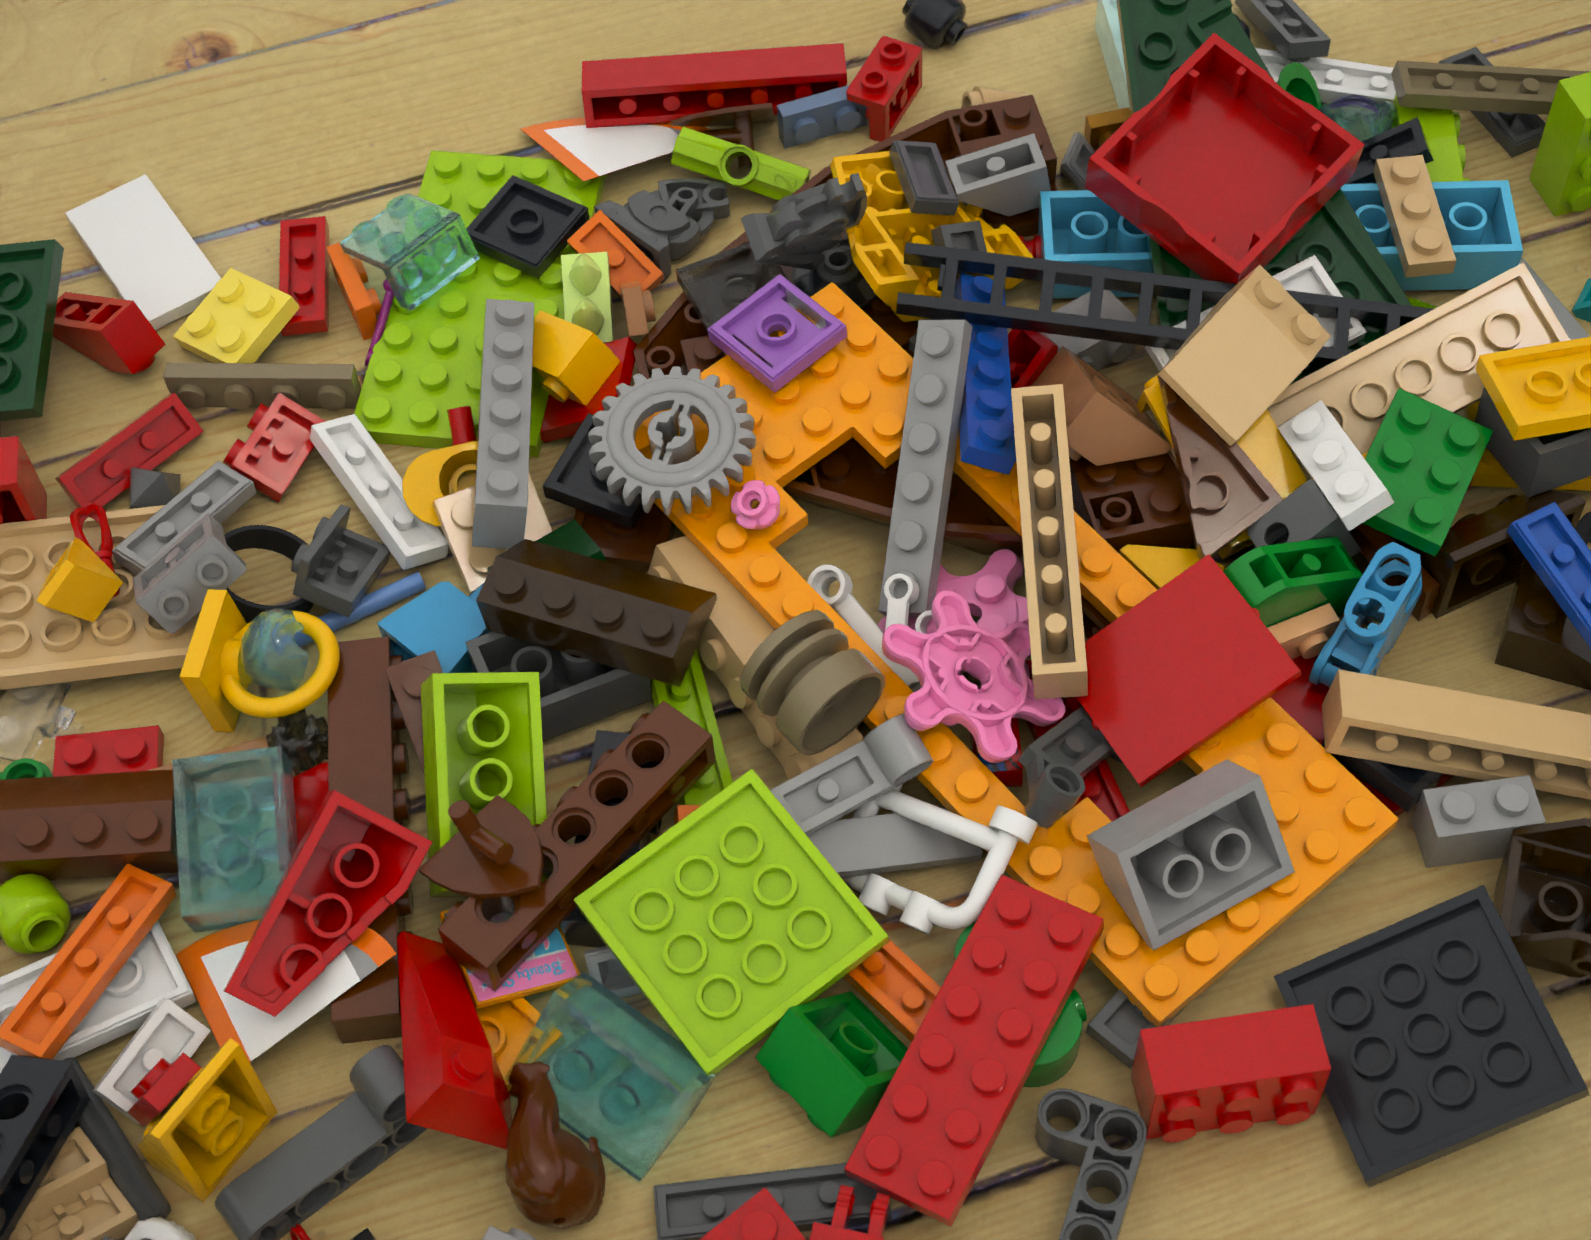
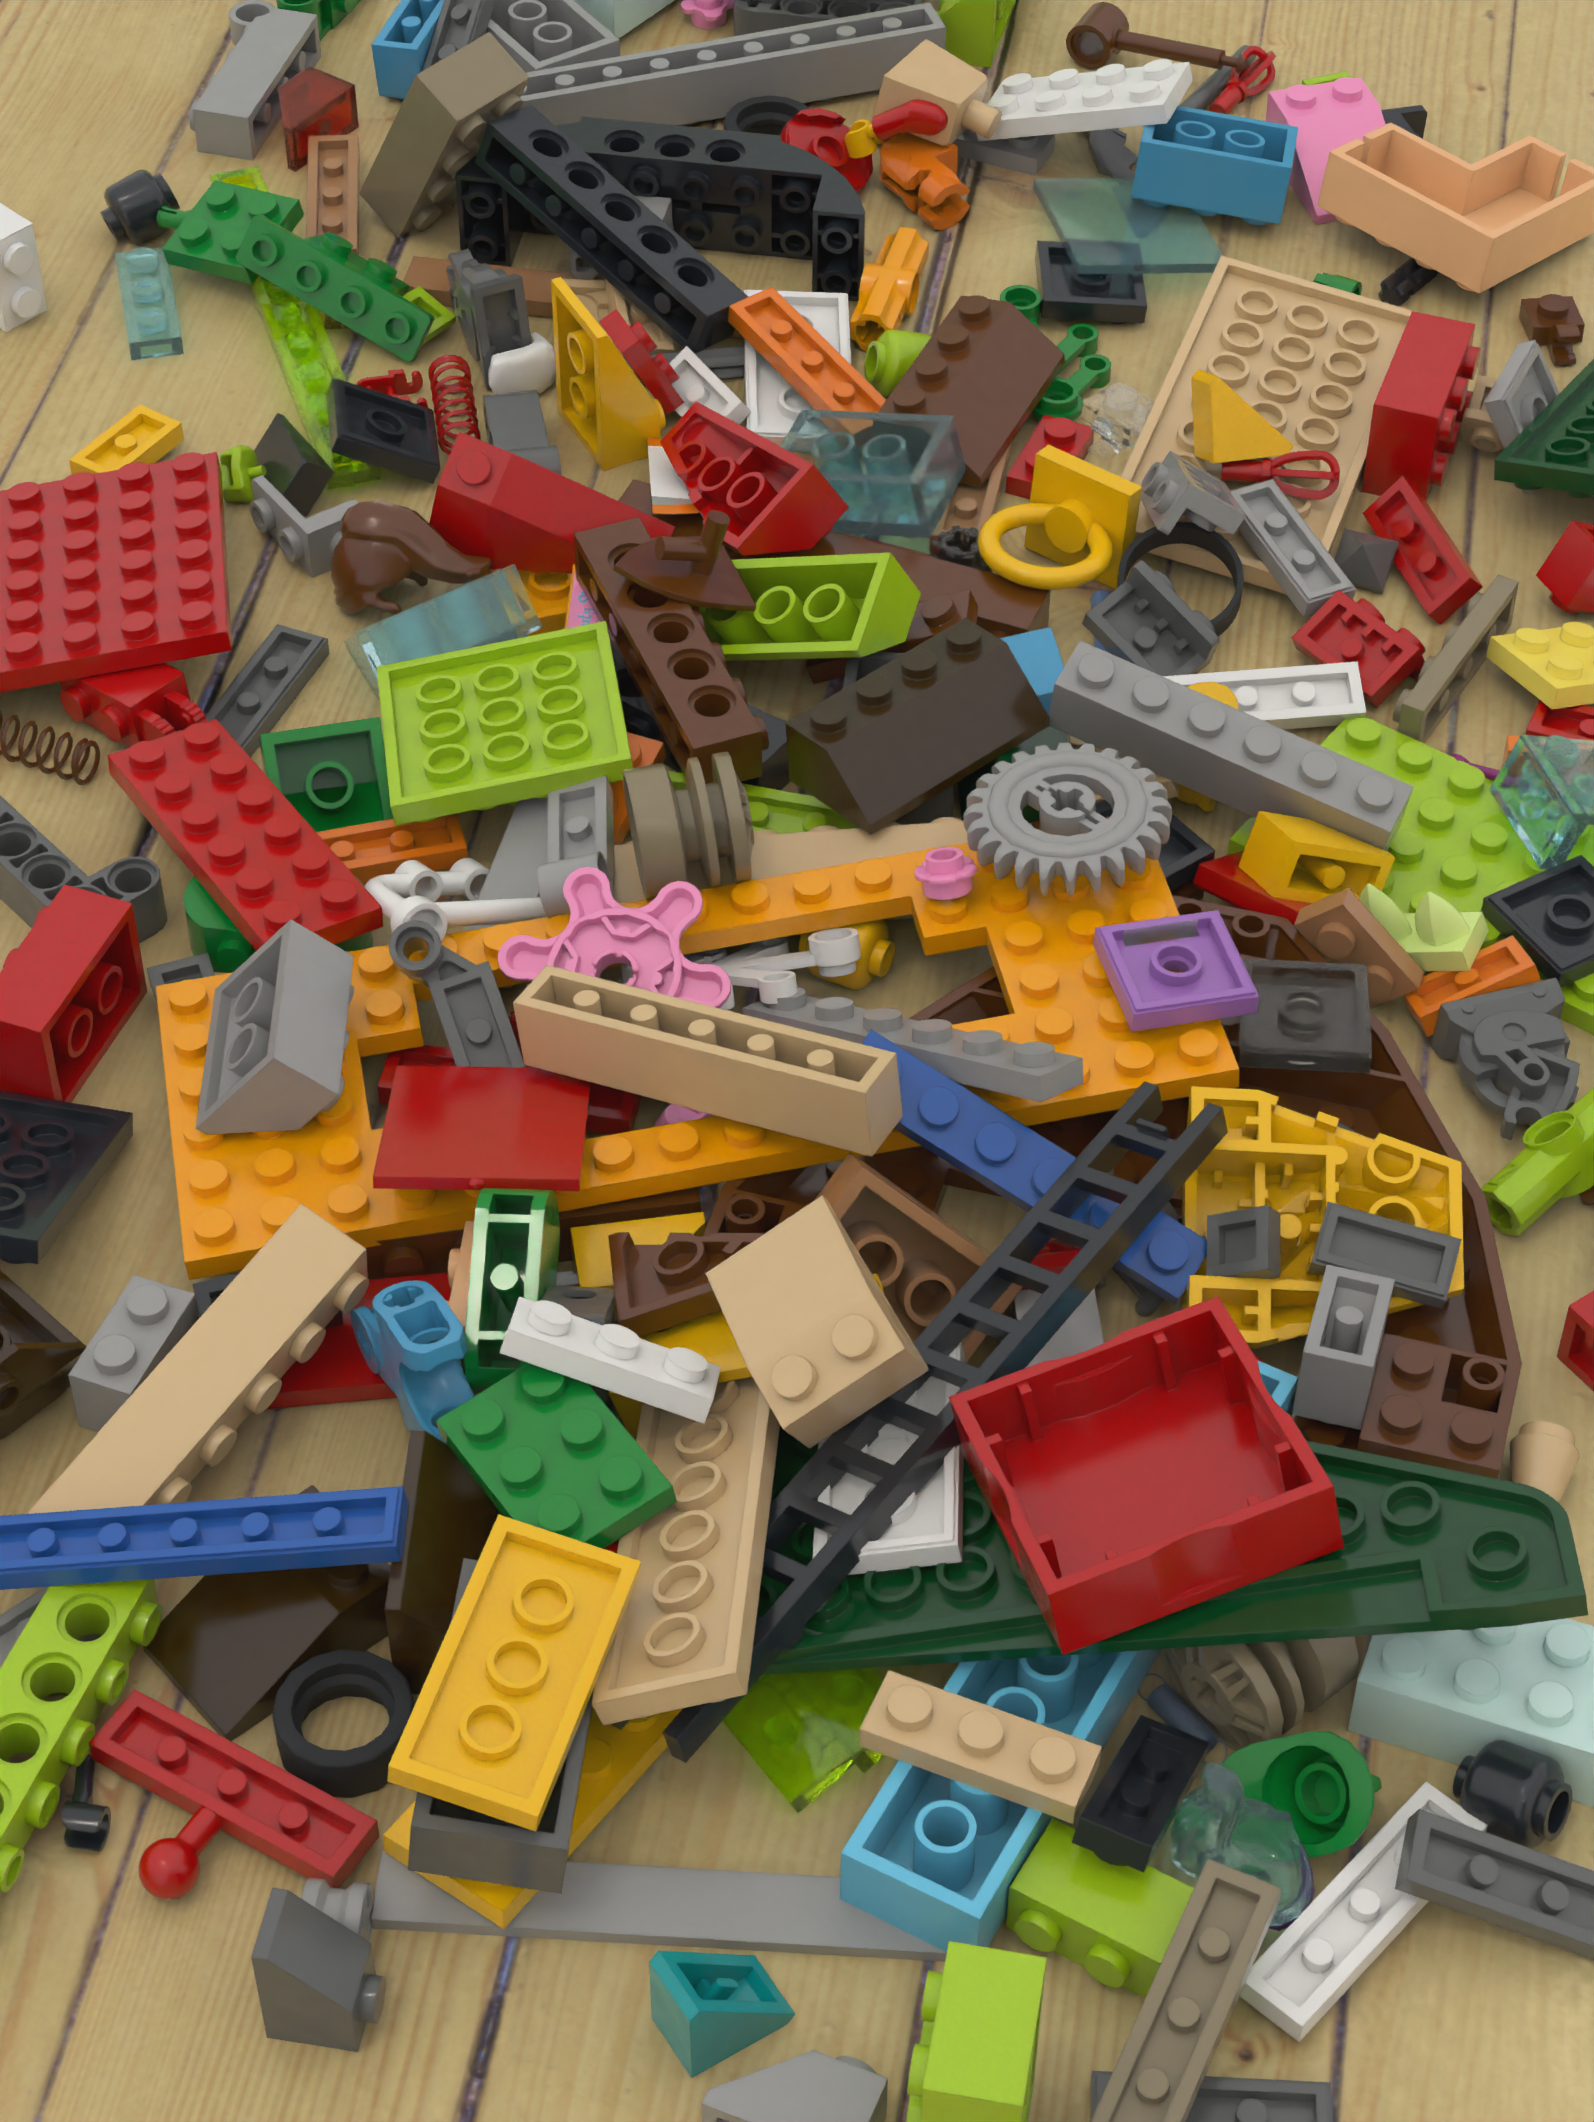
camera: 115 degrees right, 10 degrees down
(271, 652) = (1043, 521): clear light blue hair -> none
(806, 223) = (1339, 1061): dark grey piece -> none

